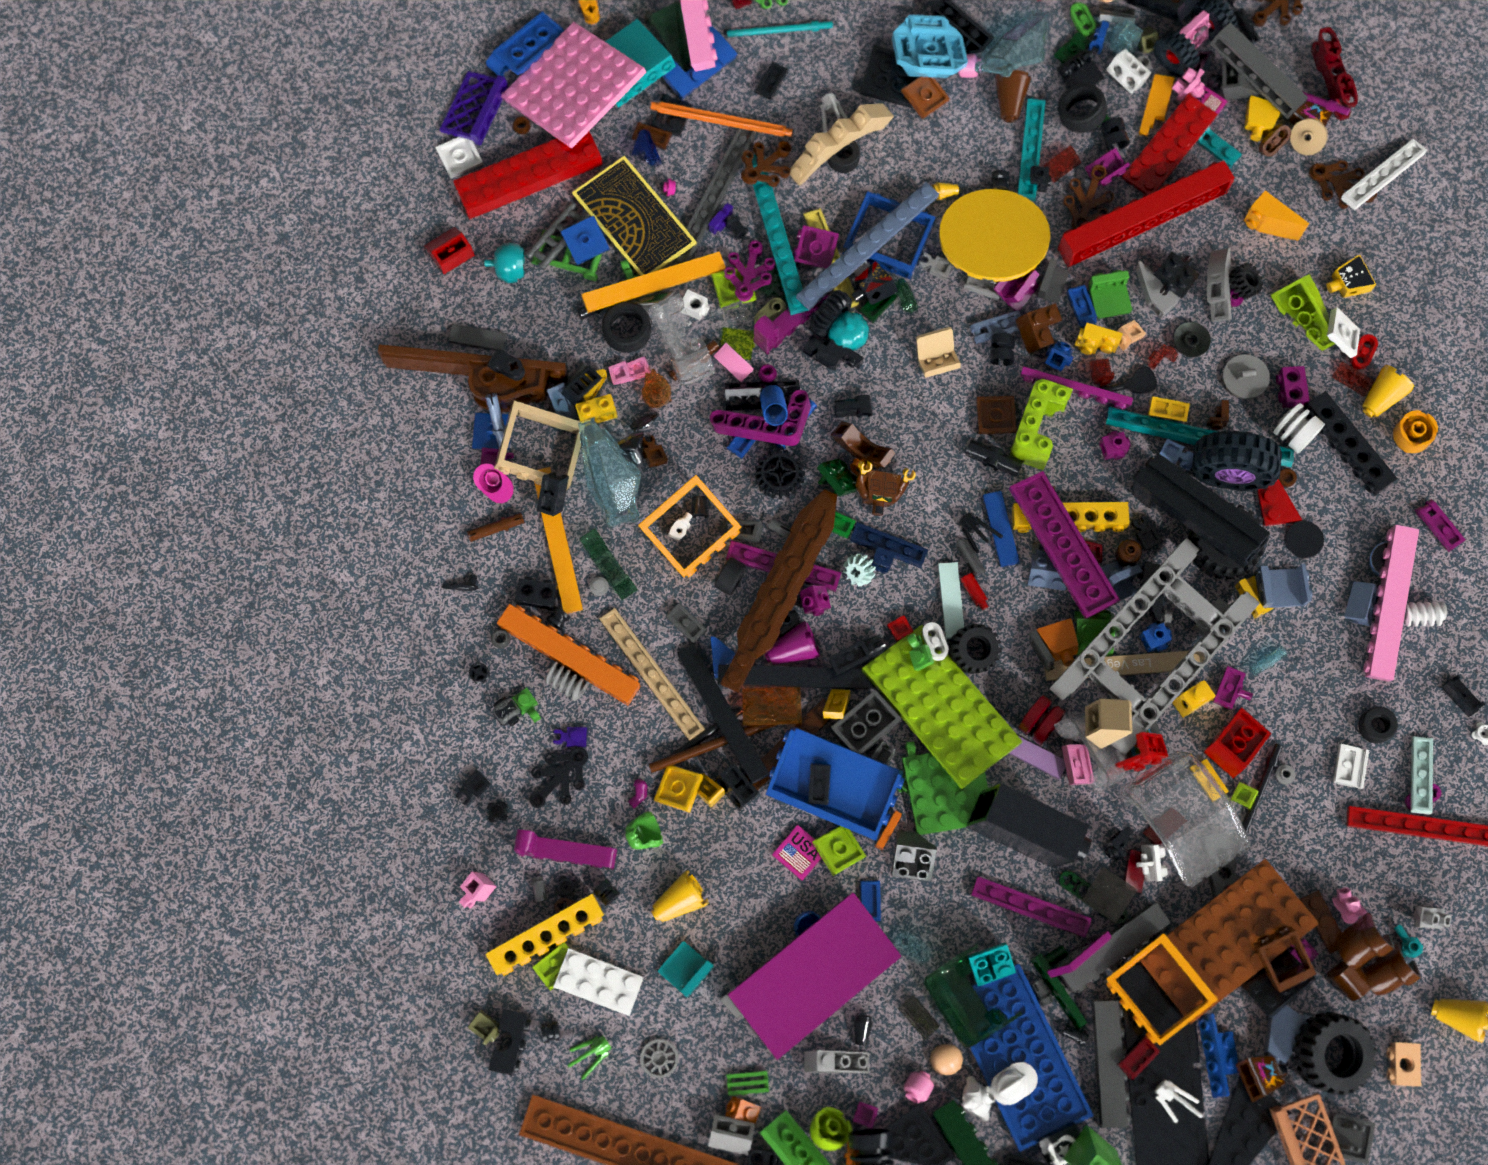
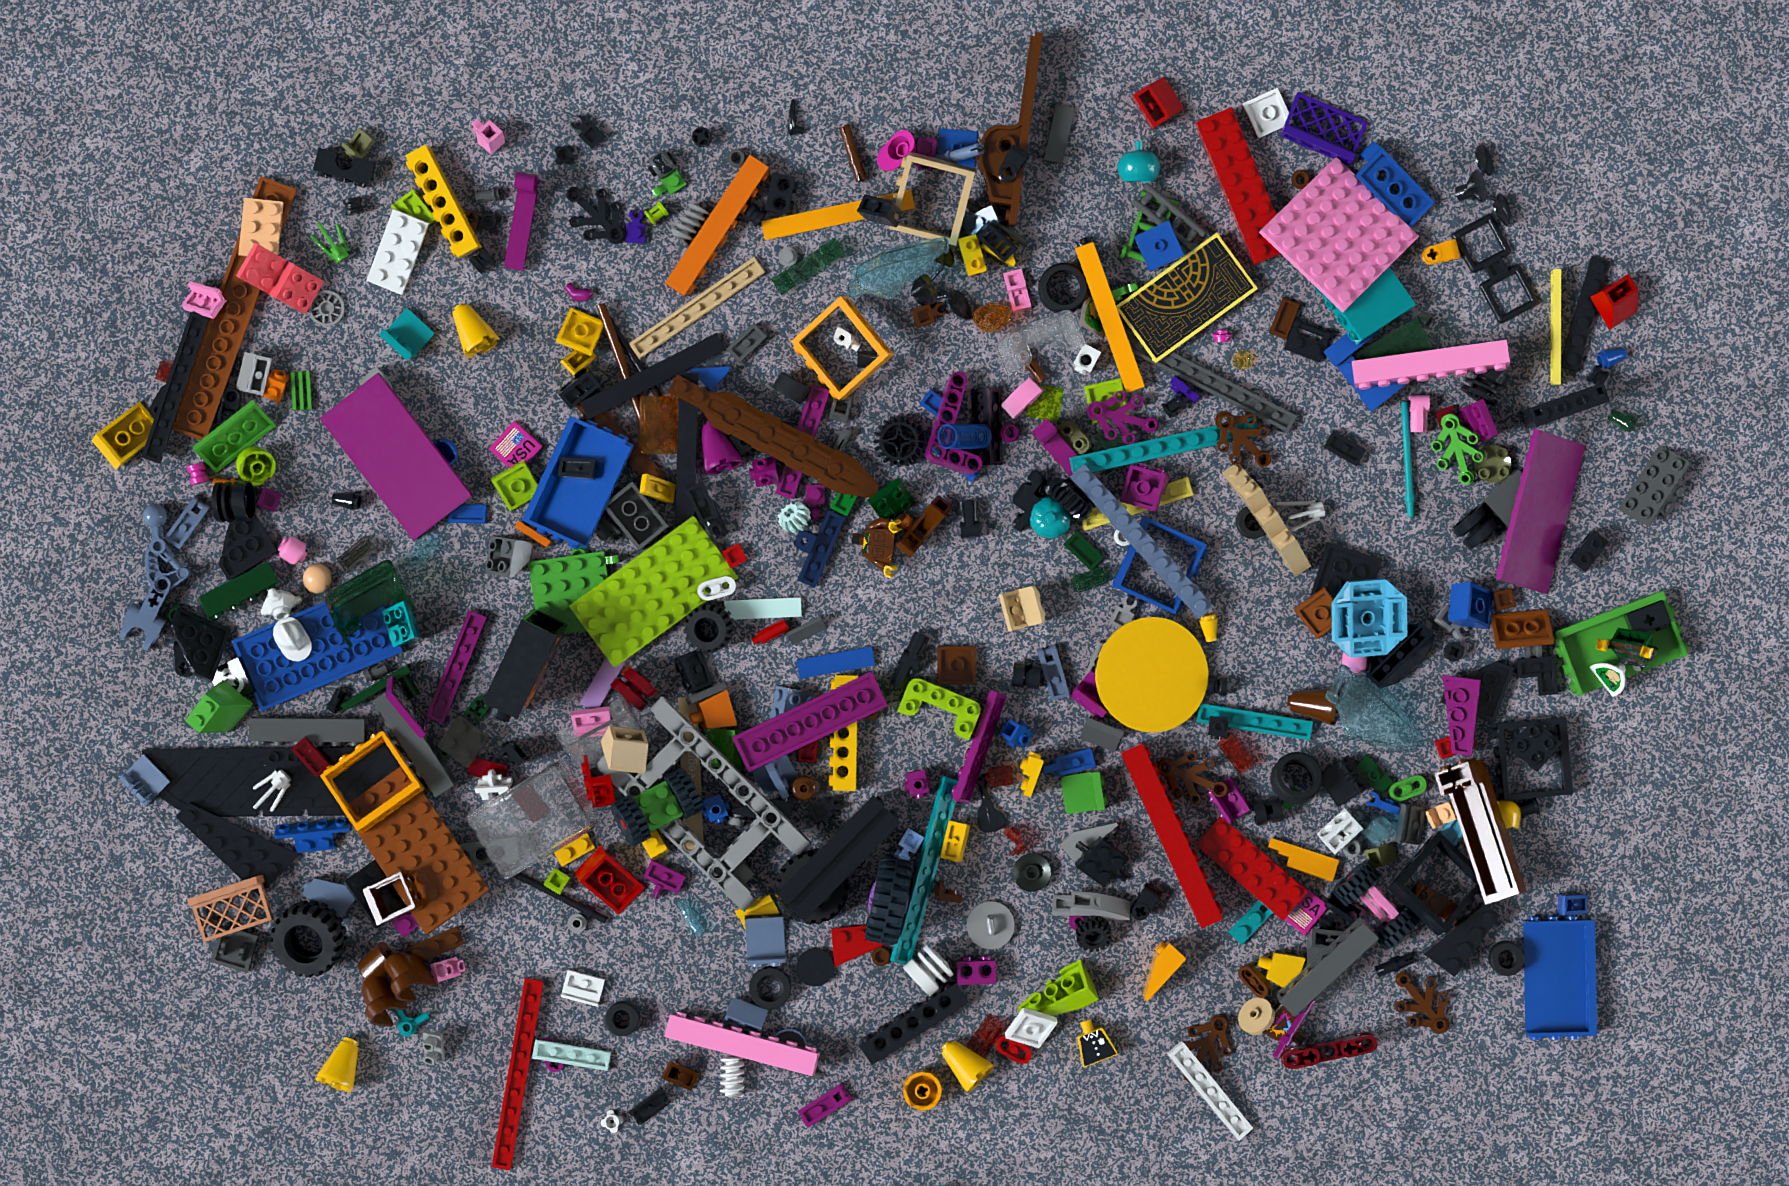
camera: 85 degrees right, 15 degrees up
(556, 716) = (656, 213): none -> lime bush
(575, 1131) = (260, 225): none -> light nougat plate
(628, 1107) = (280, 278): none -> coral piece
(644, 832) = (537, 297): bright green hair -> none
(645, 144) = (1269, 312): clear blue slope -> none
(691, 171) = (1242, 360): none -> clear yellow tile
(722, 119) = (1296, 393): orange piece -> none
(731, 20) = (1419, 411): none -> bright pink piece
(836, 552) = (815, 495): none -> magenta plate
(836, 1062) = (317, 474): light grey slope -> none
(873, 285) = (1100, 545): black torso -> none
(921, 654) = (702, 572): bright green plate -> none
(971, 525) = (839, 631): black plant -> none
(1019, 665) = (693, 671): none -> black bracket
(1035, 327) = (1047, 710): reddish brown brick -> none
(1131, 333) = (1040, 808): light nougat bracket -> none
(1164, 687) = (657, 807): none -> black plate
(1193, 84) = (1319, 894): bright pink hips -> none
(1210, 236) = (1148, 899): none -> black piece
(1261, 1075) = (291, 870): reddish brown torso -> none
(1336, 567) = (769, 1002): none -> black tyre
(1412, 1055) = (289, 1011): light nougat brick -> none
(1428, 666) = (680, 1075): none -> reddish brown slope

